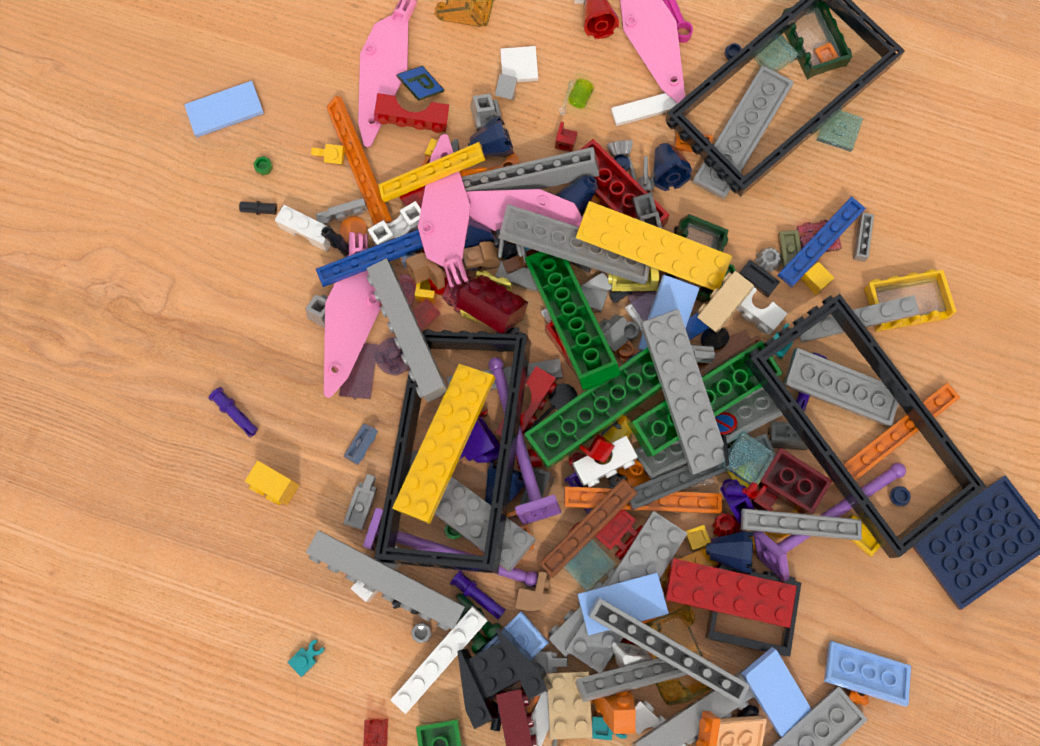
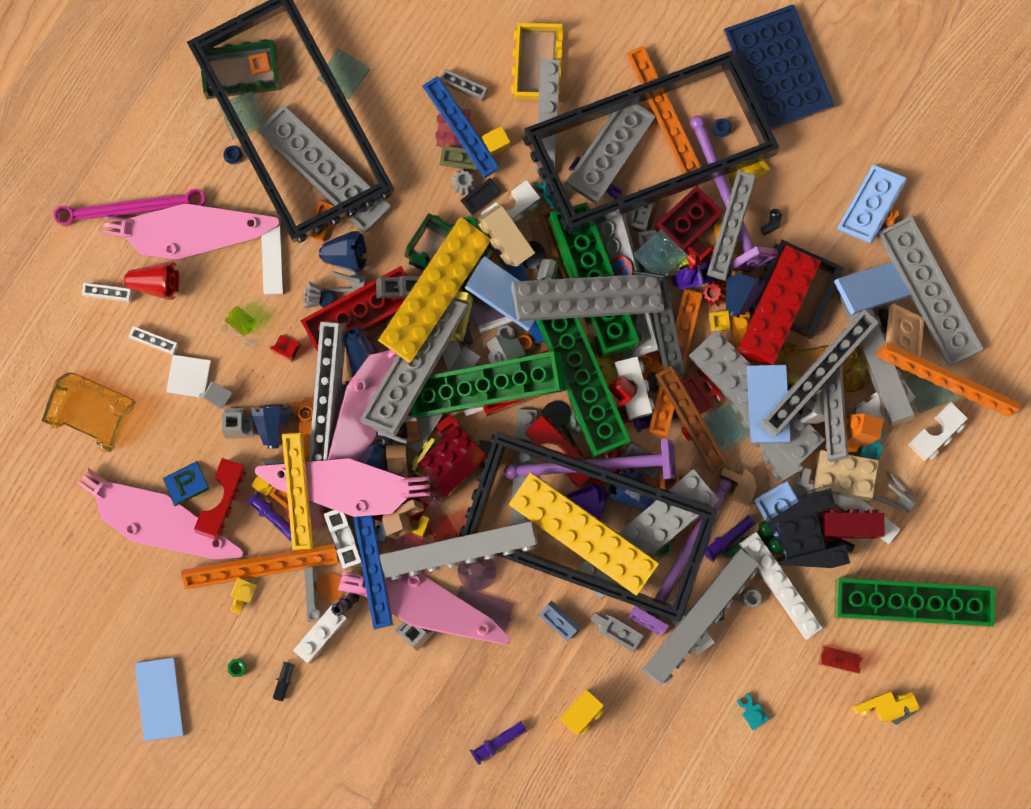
camera: 80 degrees left, 5 degrees up
(411, 156) = (266, 510): none -> dark purple pin
(528, 295) = (446, 425): none -> red panel
(544, 28) = (153, 340): none -> white piece
(816, 572) = (774, 222): none -> black arm

